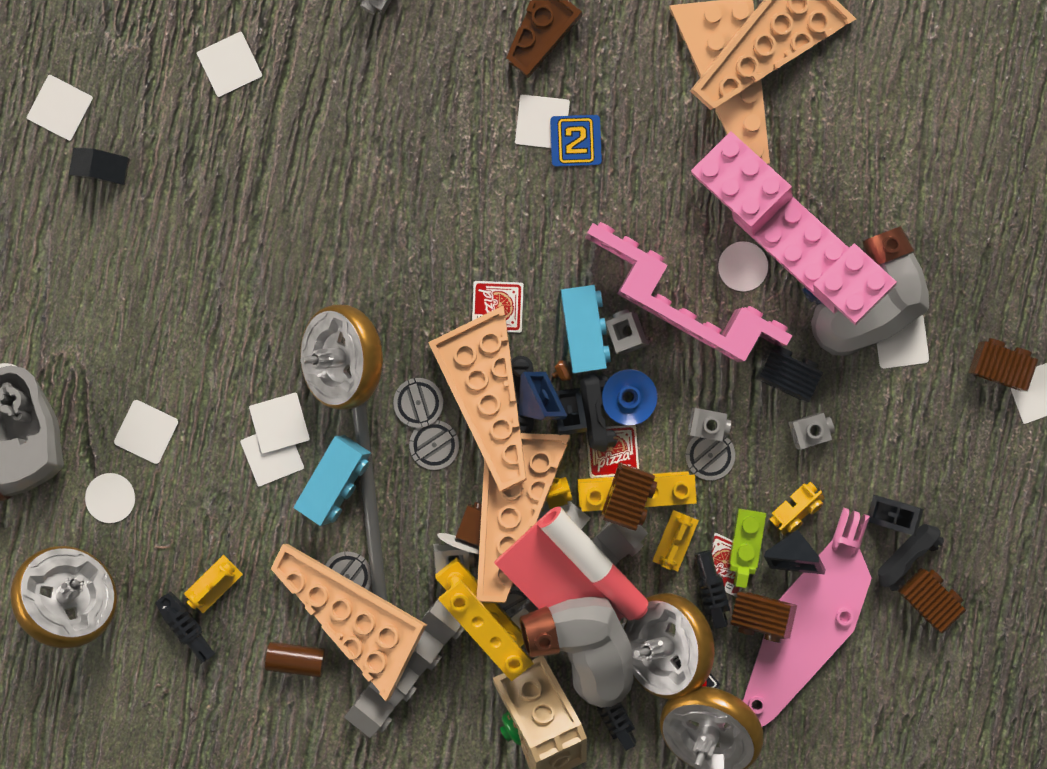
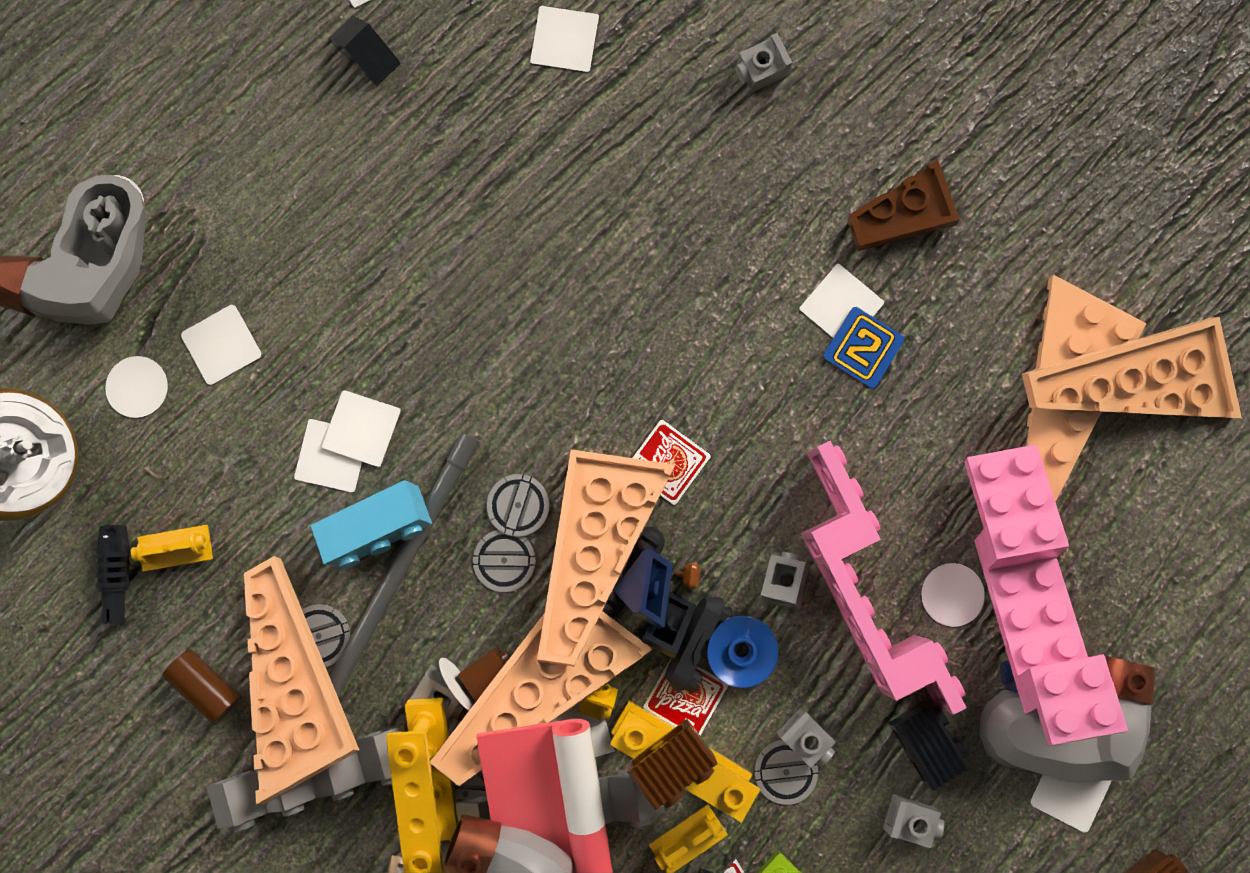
camera: 35 degrees right, 5 degrees down
(327, 359) = (455, 394): flat silver wheel -> none
(585, 328) = (744, 546): medium azure brick -> none

